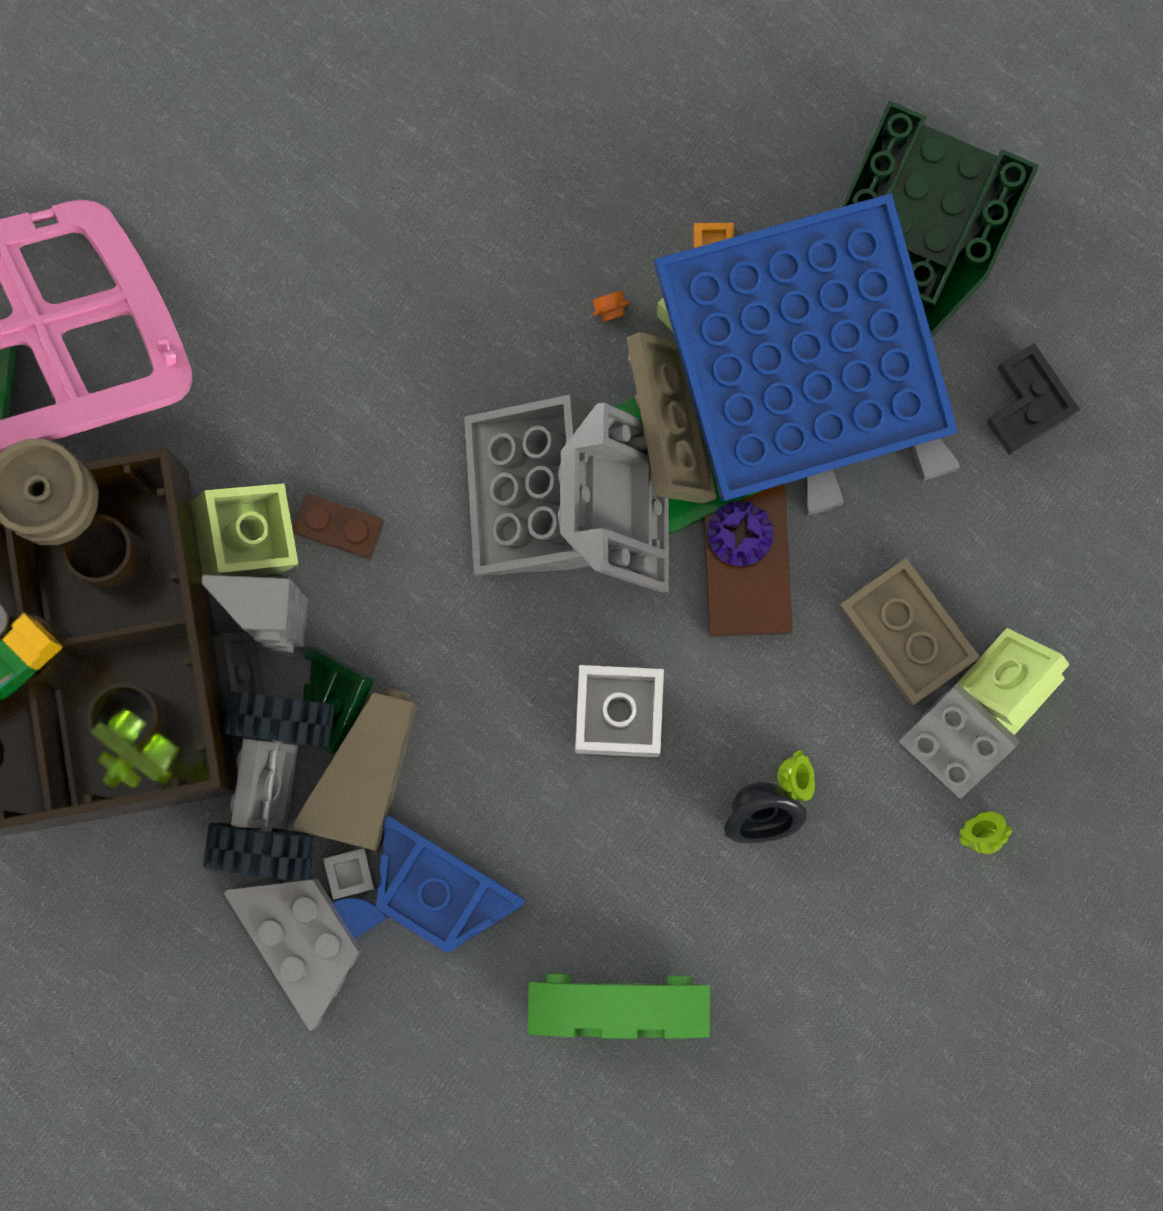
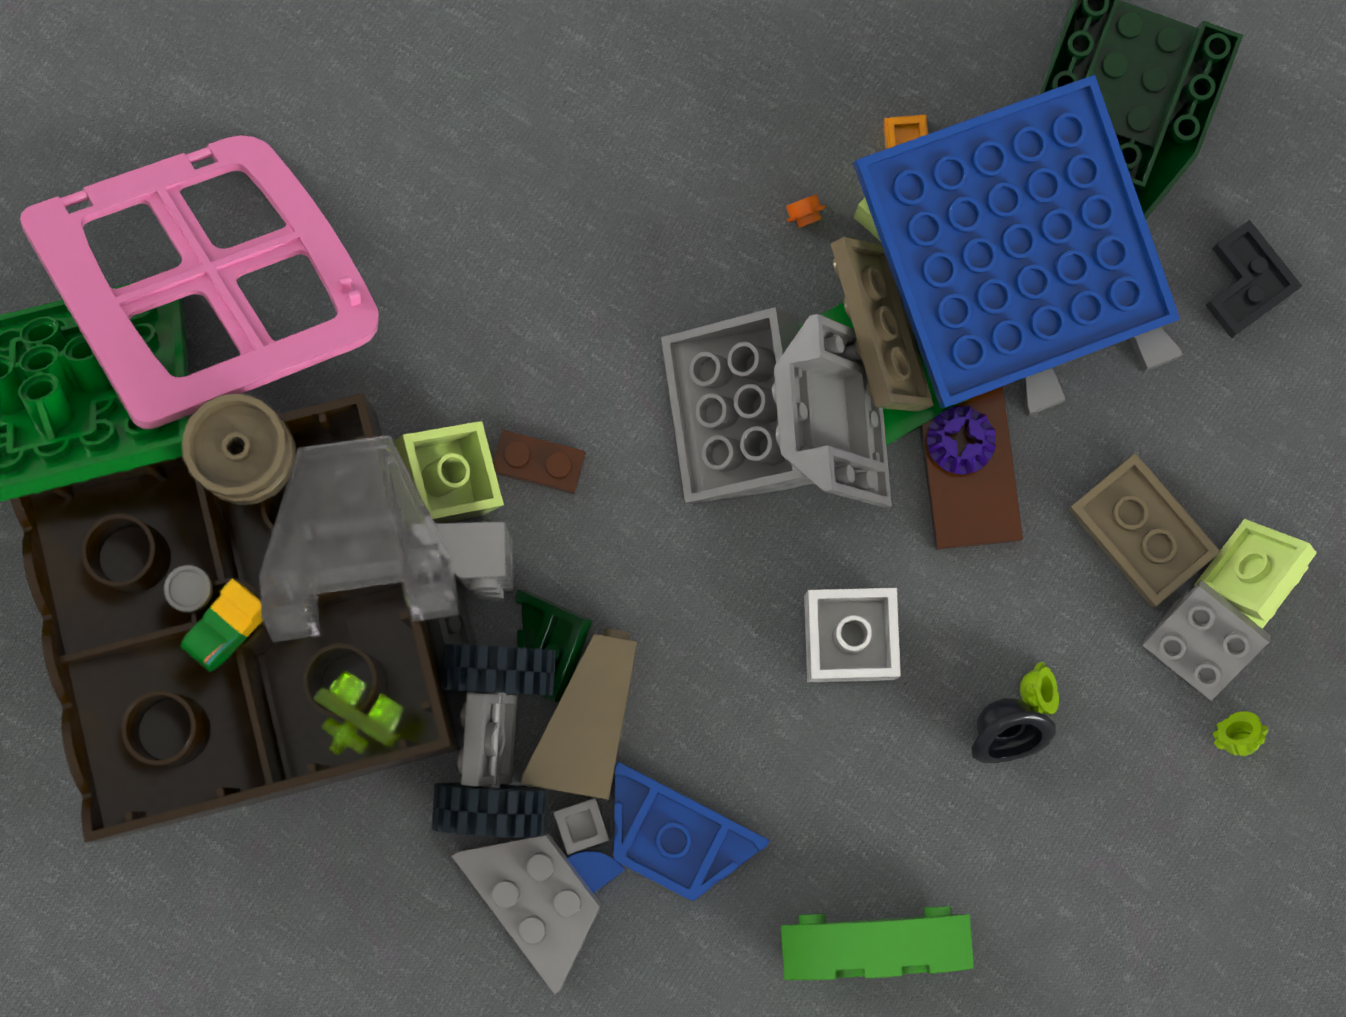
camera: 10 degrees left, 0 degrees up
(141, 571) = (351, 525): none -> clear wedge

